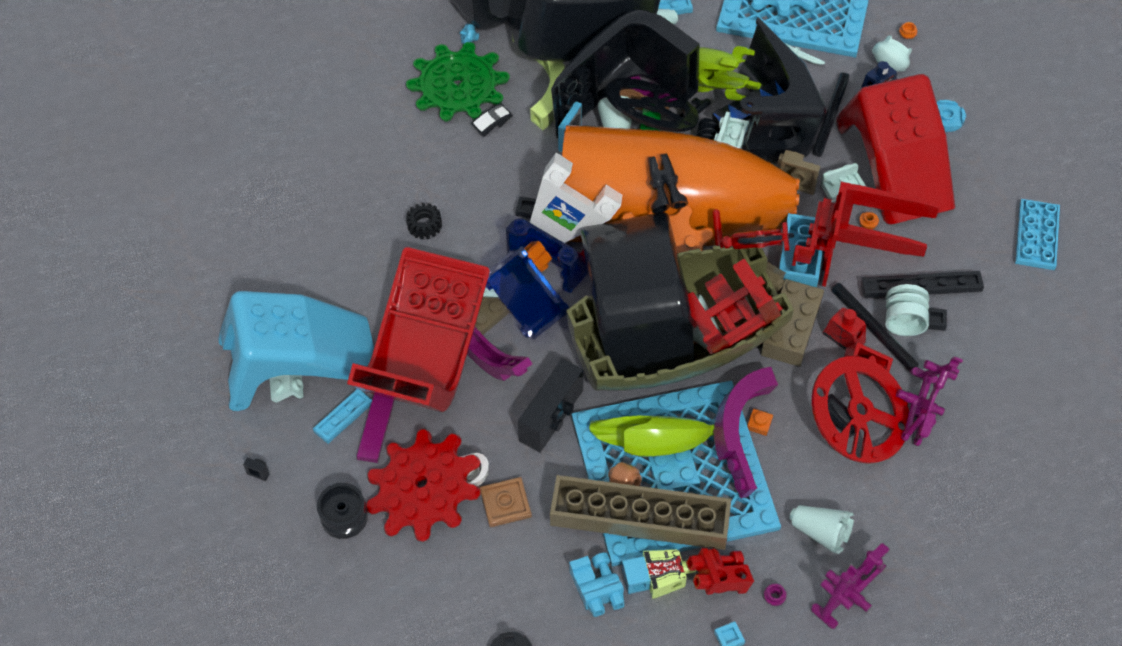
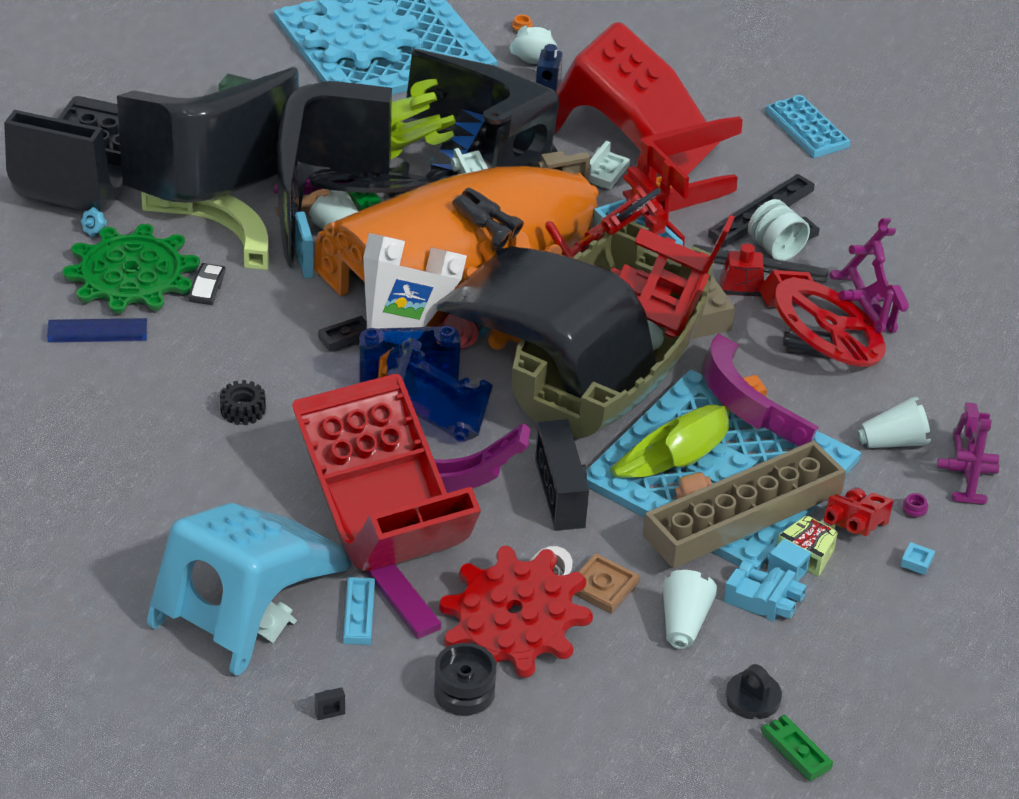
camera: 45 degrees left, 15 degrees down
(397, 115) = (97, 330): none -> clear blue tile
(526, 561) = (686, 605): none -> light aqua cone

